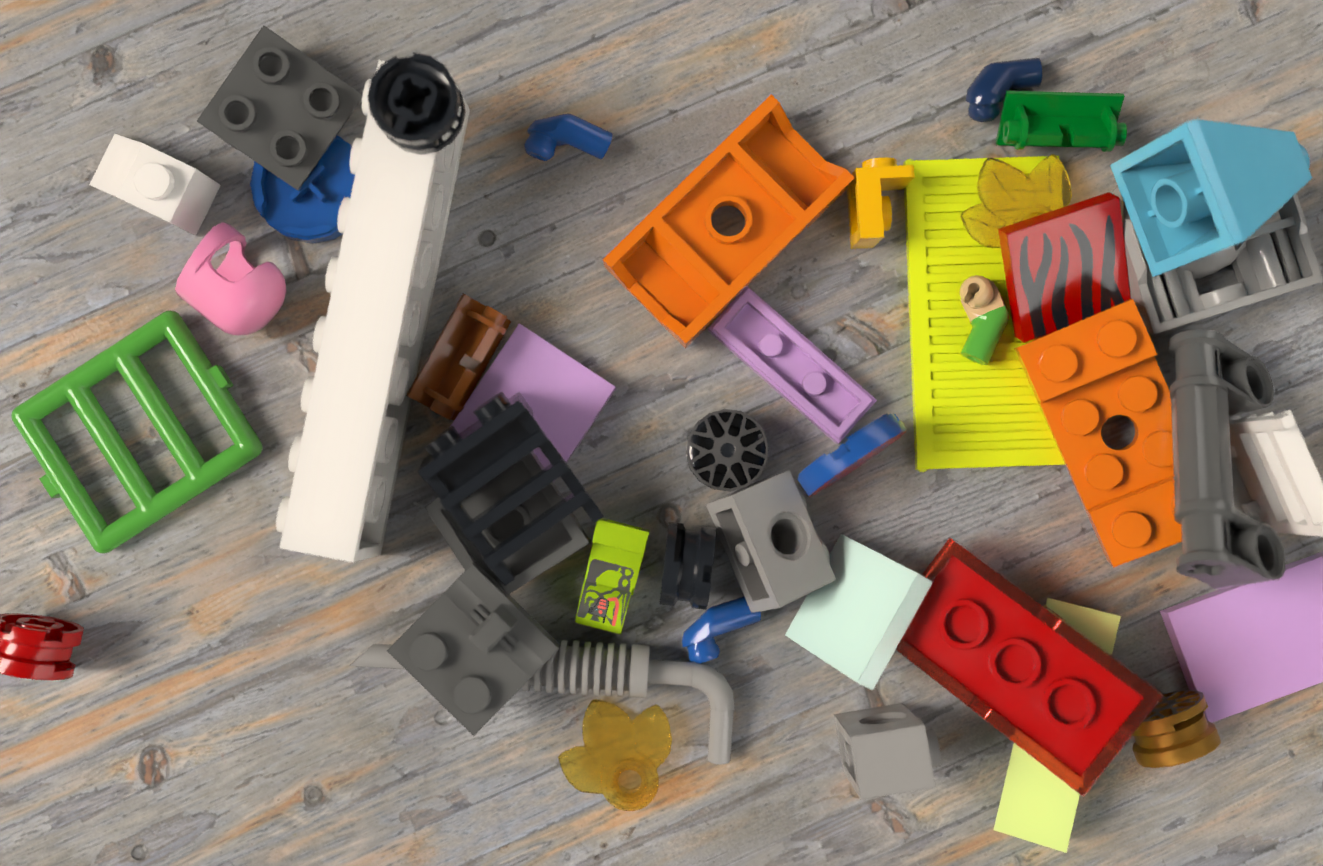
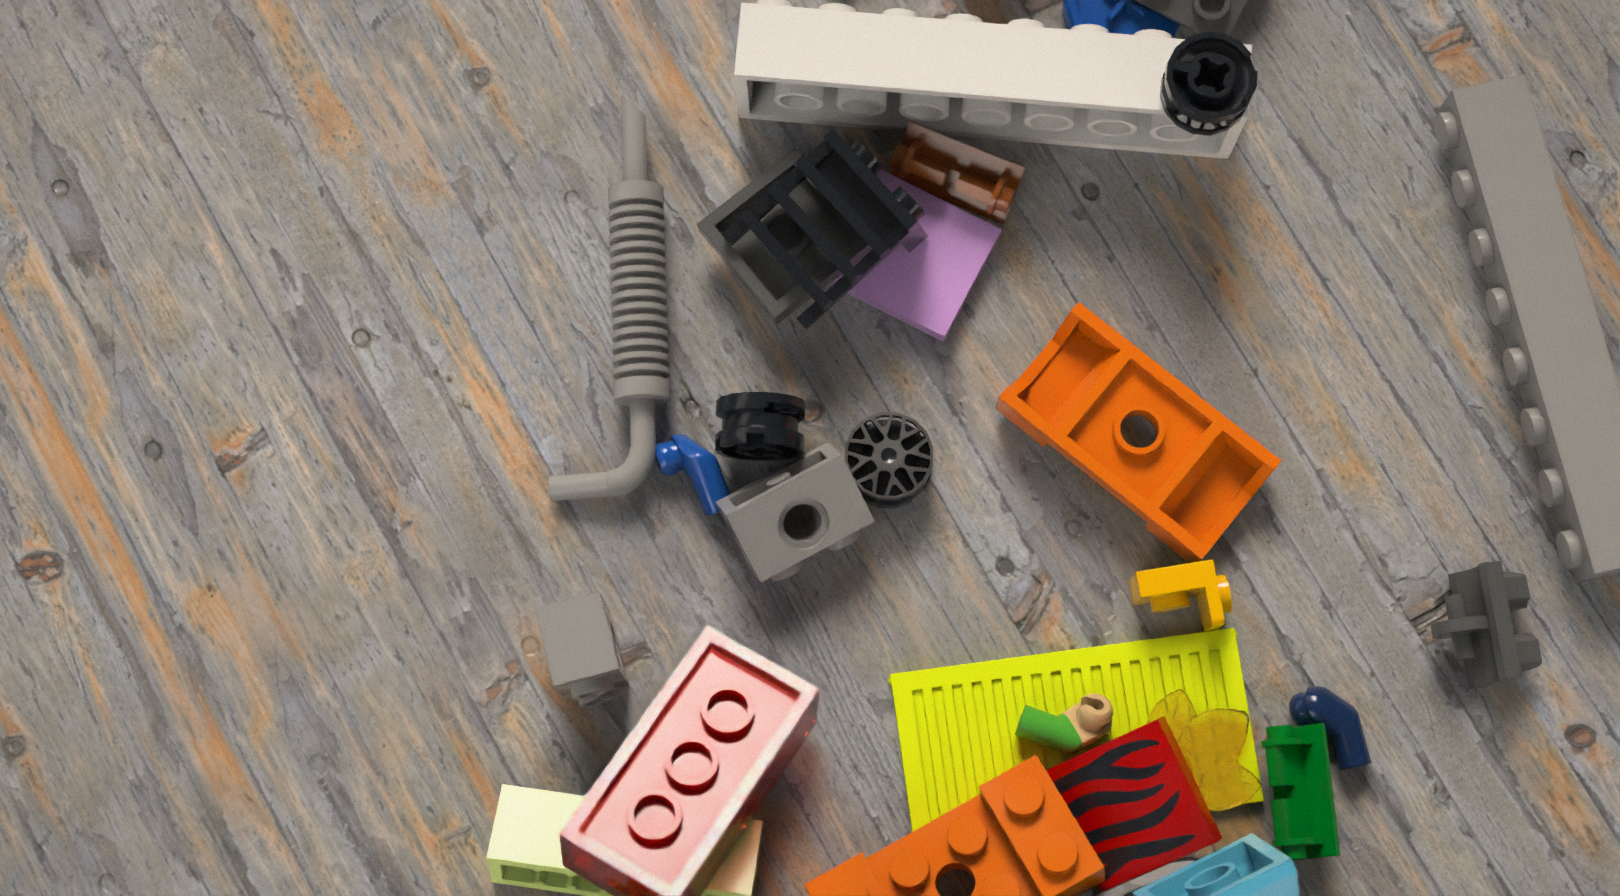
camera: 85 degrees right, 10 degrees down
(474, 648) = (653, 211): dark grey hinge -> none
(566, 130) = (1216, 258): blue arm -> none
(611, 574) = (742, 352): lime leg -> none
(616, 745) = (558, 376): clear yellow plate -> none
(792, 365) = (990, 525): lavender tile -> none
(850, 455) = (898, 587): blue tile -> none
(861, 613) = (729, 607): light aqua tile -> none

